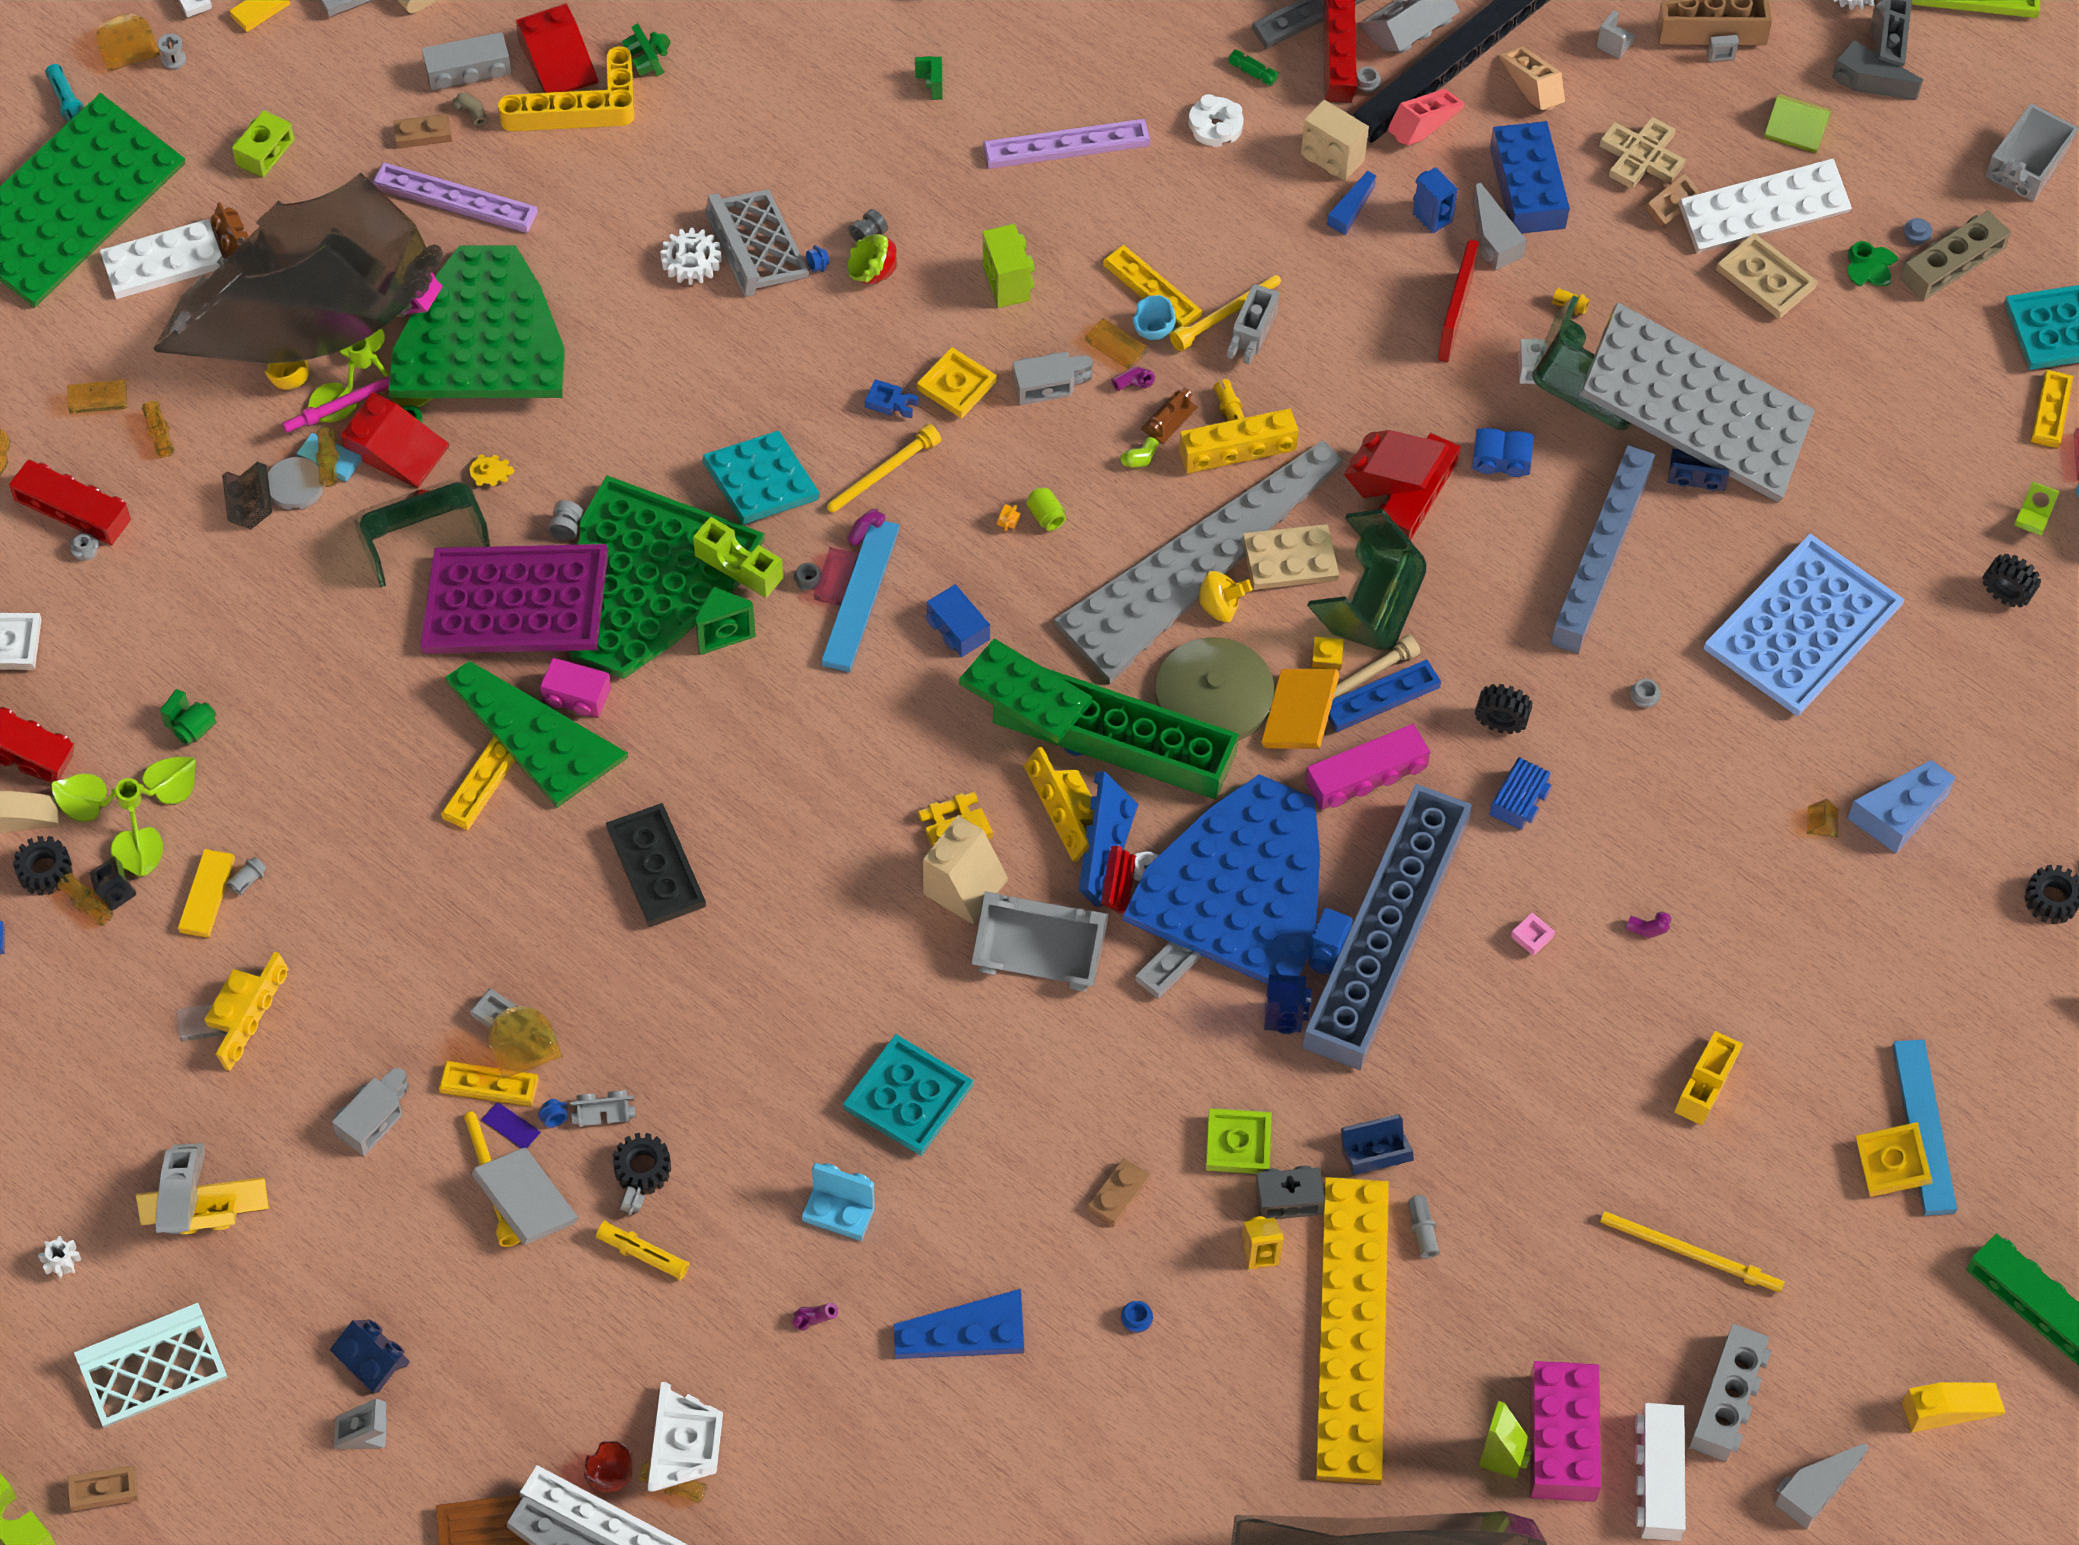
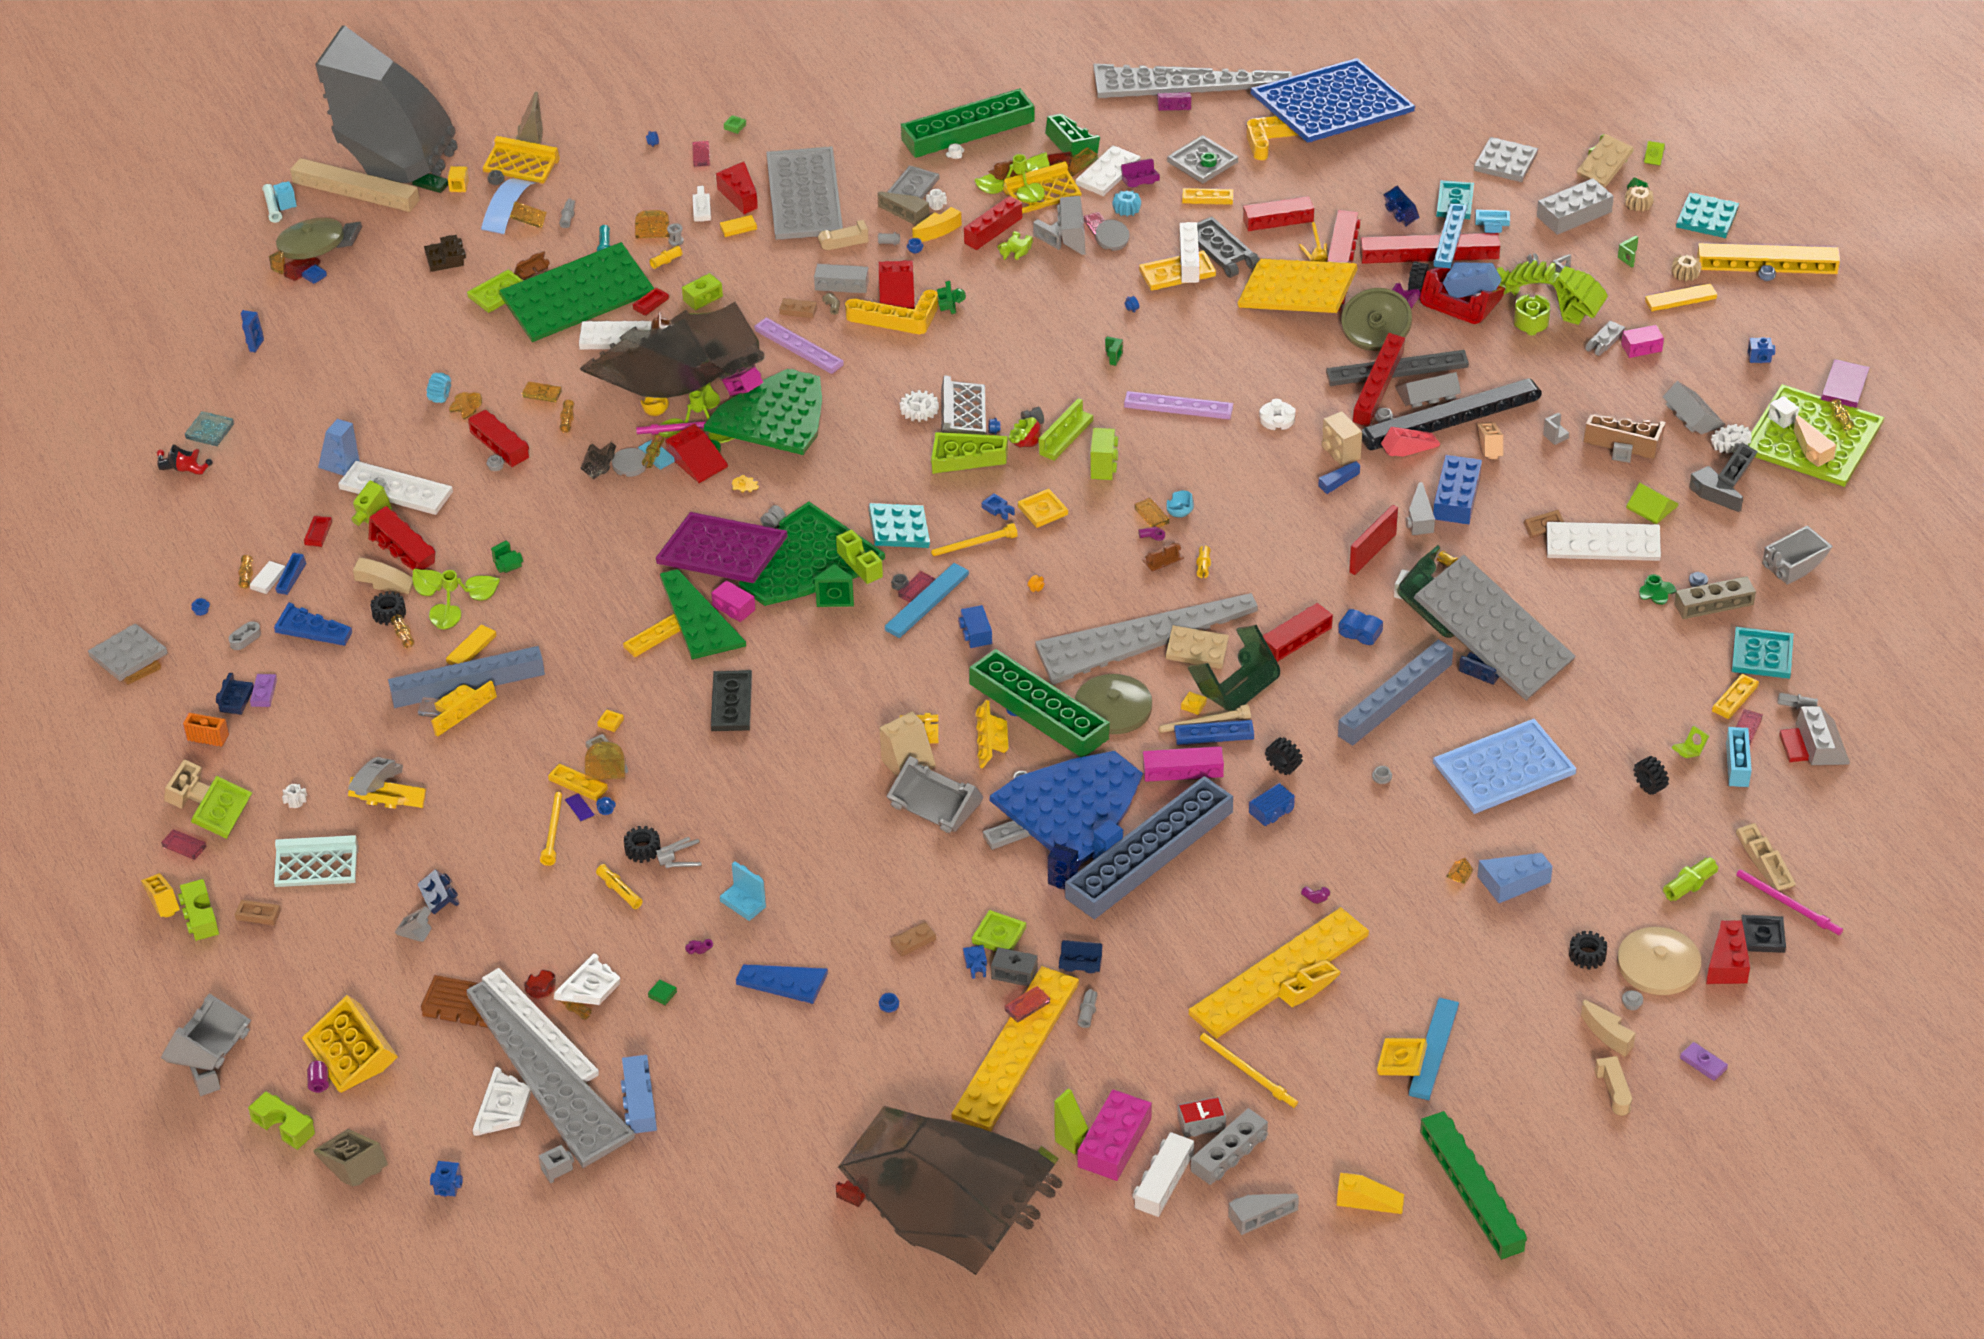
camera: 25 degrees right, 15 degrees down
(111, 884) = (420, 627): black bracket -> none
(175, 96) = (665, 257): none -> yellow pin
(188, 182) = (650, 301): none -> red tile
(234, 948) = (475, 673): none -> sand blue brick
(247, 875) = (498, 643): light grey pin -> none
(371, 1111) = (504, 775): light grey hinge -> none
(413, 508) = (686, 490): clear green windscreen -> none
(486, 957) = (610, 720): none -> yellow tile
(524, 1196) = (566, 839): light grey tile -> none
(615, 1106) = (627, 807): light grey hinge -> none
(632, 1200) = (626, 860): light grey plate -> none
(688, 1171) = (666, 855): none -> light grey plant
(795, 1413) = (662, 992): none -> green tile
(803, 317) = (967, 451): none -> lime wedge
(862, 524) = (946, 562): magenta arm -> none
(908, 1094) = (815, 854): teal plate -> none
(927, 239) = (1064, 431): none -> lime fence
(1025, 690) = (991, 665): green plate -> none
(1046, 508) = (1060, 584): lime brick -> none
(1049, 376) = (1100, 518): light grey hinge -> none
(1110, 827) = (1003, 756): blue wing -> none
(1118, 879) = (1005, 777): red tile -> none
(1142, 456) = (1133, 573): lime arm -> none
(1148, 282) = (1184, 481): yellow tile -> none
(1184, 336) = (1194, 519): yellow piece -> none
(1221, 595) = (1142, 654): yellow piece -> none
(1224, 1195) = (975, 959): none -> blue plate
(1238, 440) = (1197, 579): yellow brick -> none
(1253, 67) = (1316, 393): green axle -> none
(1254, 322) = (1239, 520): light grey hinge -> none
(1262, 1242) = (982, 986): yellow slope -> none
(1300, 708) = (1159, 724): light orange tile -> none
(1341, 1254) = (1027, 1004): none -> clear pink tile
(1394, 463) = (1282, 610): red slope -> none
(1434, 199) = (1388, 484): blue brick -> none
(1532, 934) = (1239, 878): bright pink plate -> none
(1642, 153) = (1538, 494): tan plate -> none
(1656, 1074) = (1263, 981): none -> yellow plate
(1669, 1357) = (1201, 1117): none -> brick
(1766, 275) = (1584, 578): tan plate -> none

